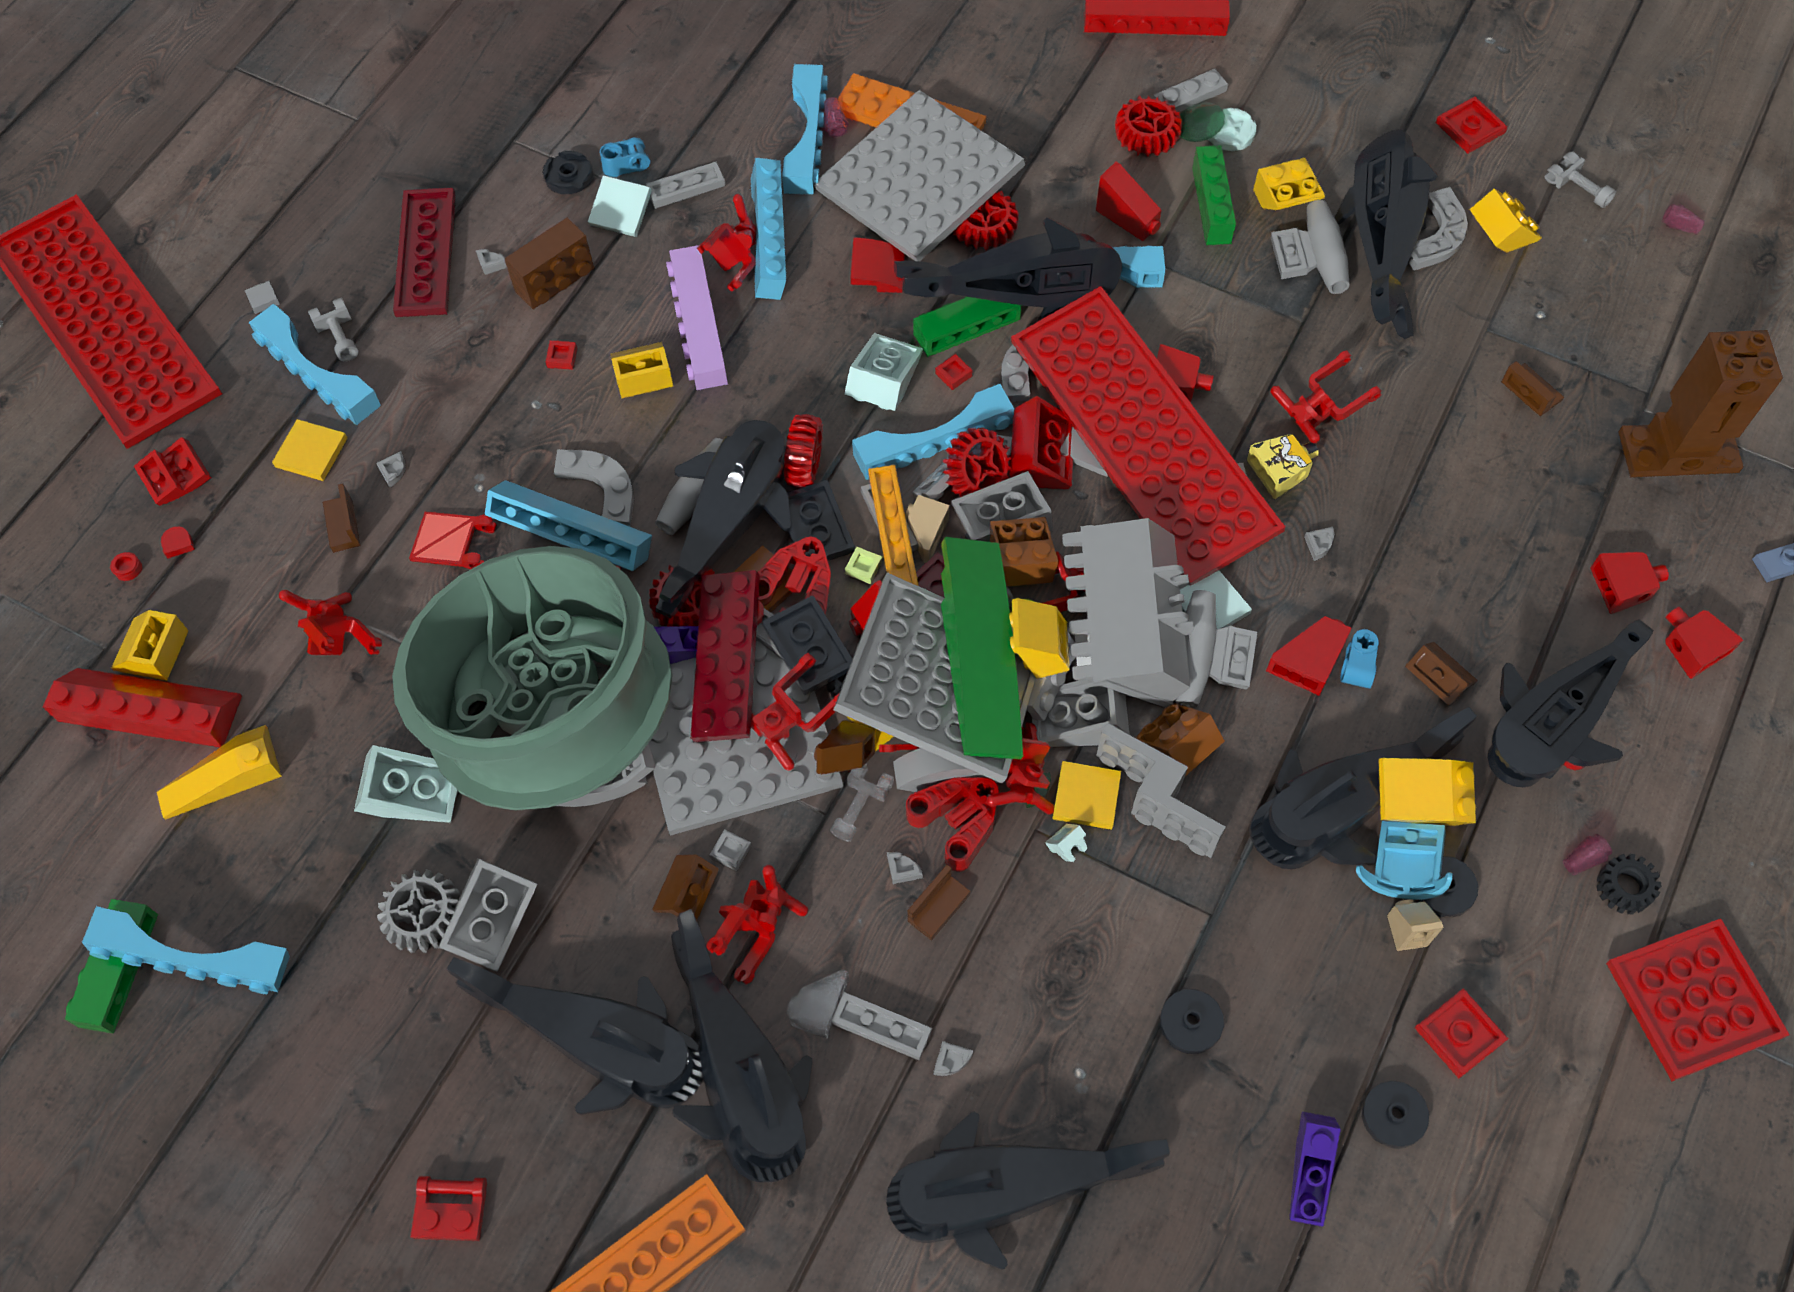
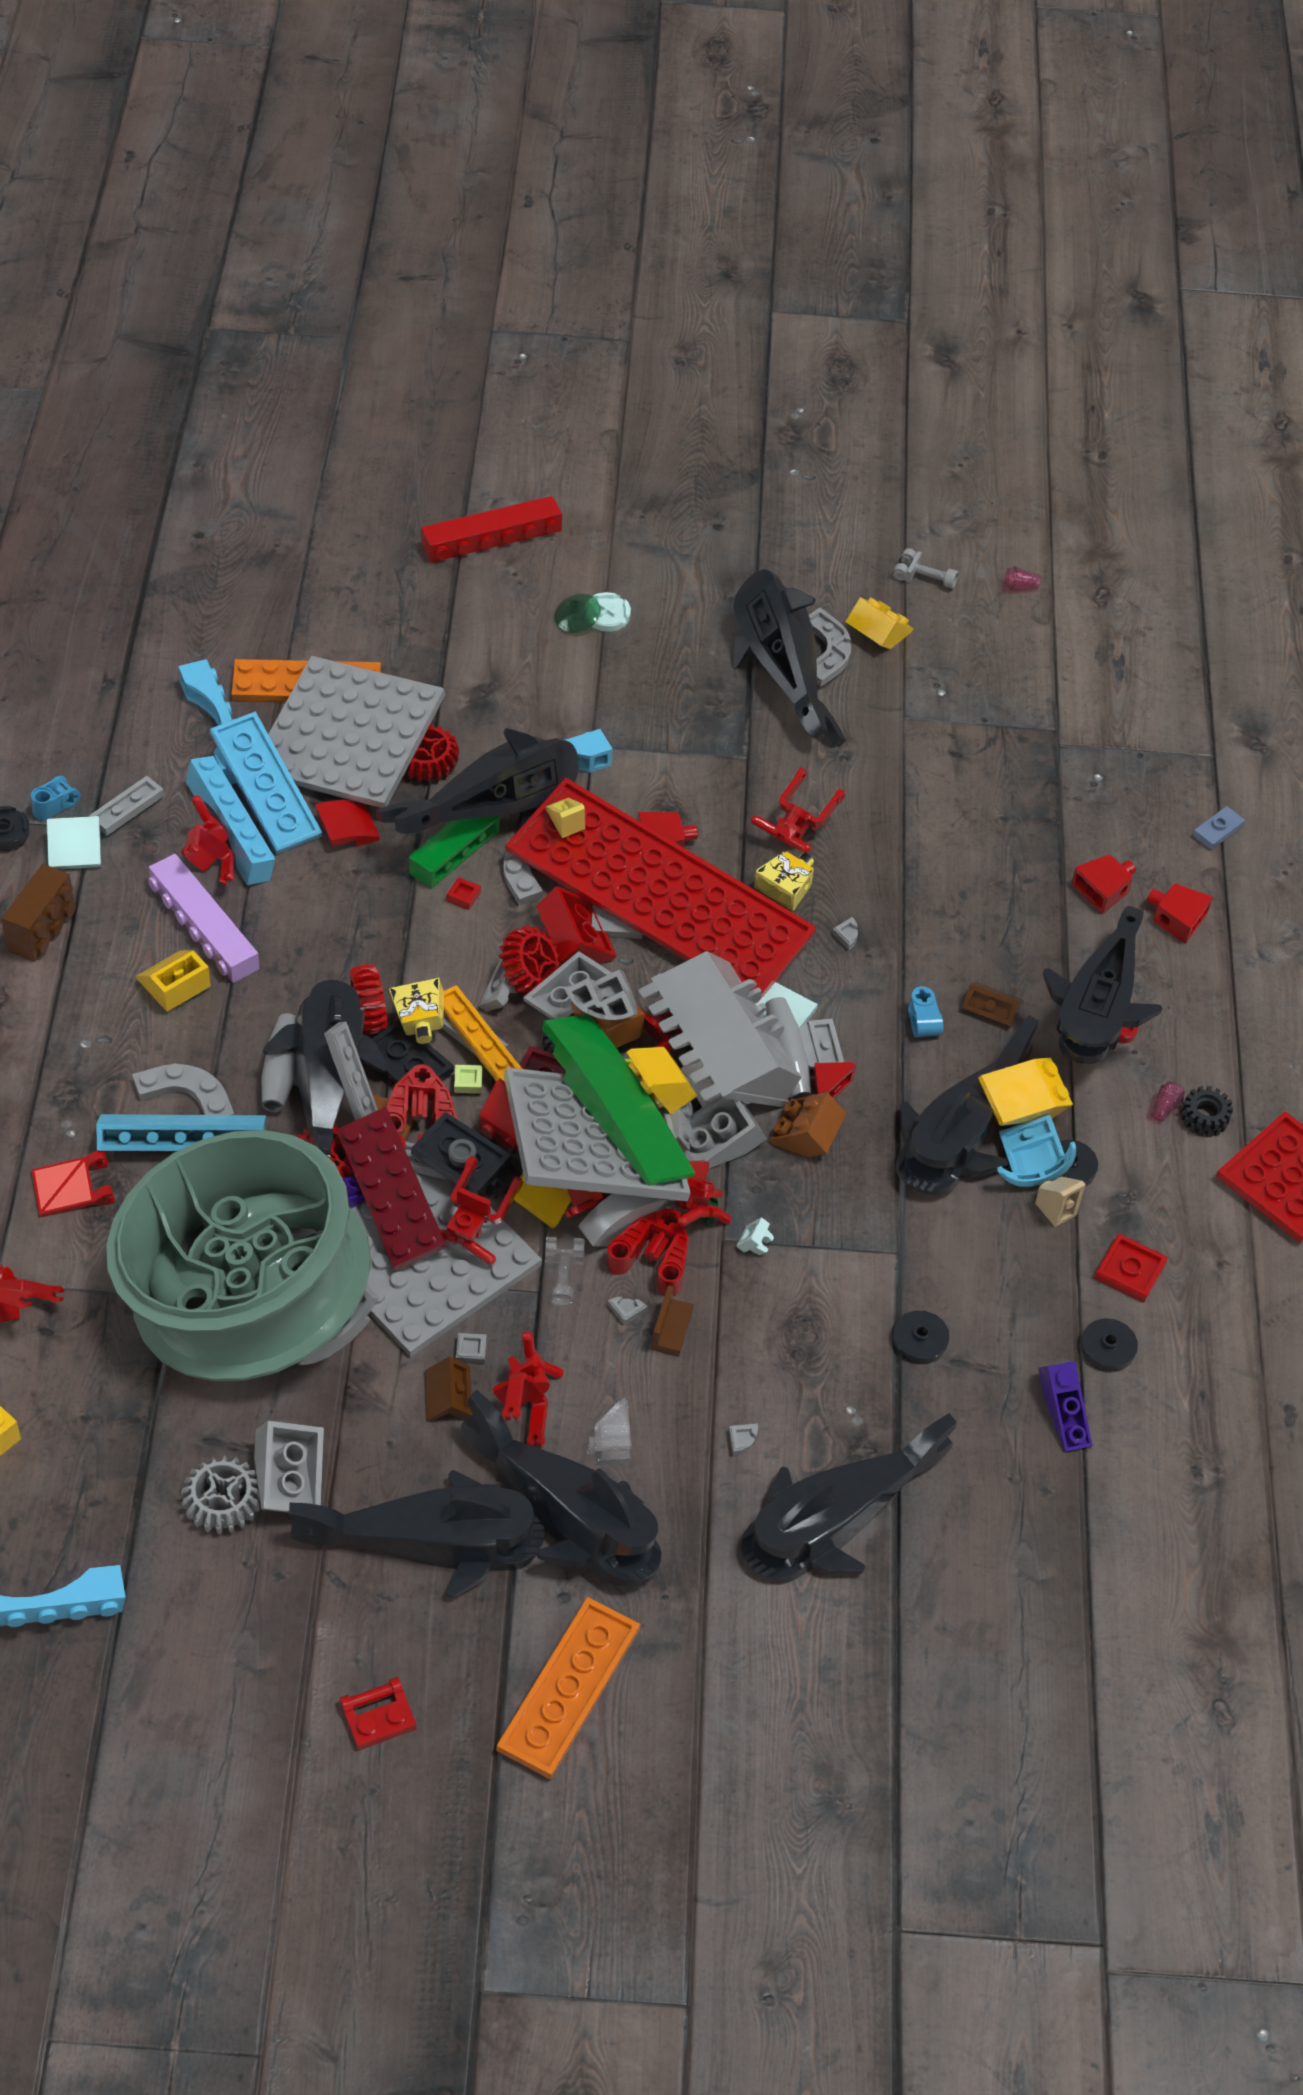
camera: 30 degrees left, 10 degrees down
(404, 787) = (149, 1400): light aqua slope -> none
(561, 355) = (87, 992): red tile -> none
(736, 521) = (350, 1070): none -> light grey tile
(806, 642) = (460, 1151): none -> dark grey tile
(817, 202) = (266, 783): none -> medium azure tile
(834, 118) = (239, 703): clear pink cone -> none
(845, 477) = (420, 1008): none -> torso
(845, 748) = (534, 1227): reddish brown slope -> none
(881, 1026) = (673, 1433): light grey plate -> none
(882, 371) = (402, 912): light aqua slope -> none
(927, 521) = (507, 1024): tan slope -> none
(986, 410) = (512, 913): medium azure arch -> none
(1020, 534) = (604, 998): none -> light grey brick
(1081, 327) = (567, 816): none -> light yellow slope
(1087, 795) = (752, 1196): yellow tile -> none
(1127, 203) = (549, 702): red slope -> none
(1148, 126) = (533, 635): red gear -> none
(1156, 796) = (809, 1158): light grey bracket -> none
(1194, 90) = (554, 590): light grey plate -> none
(1213, 195) = (621, 672): green brick -> none
(1228, 697) = (832, 1077): none -> red slope
(1287, 185) = (681, 646): yellow slope -> none
(1310, 655) = (883, 1024): red slope -> none
(1319, 247) = (731, 690): light grey plate -> none
(1471, 125) = (812, 549): red tile -> none
(1531, 388) = (961, 754): reddish brown panel -> none
(1709, 409) = (1112, 720): reddish brown brick -> none

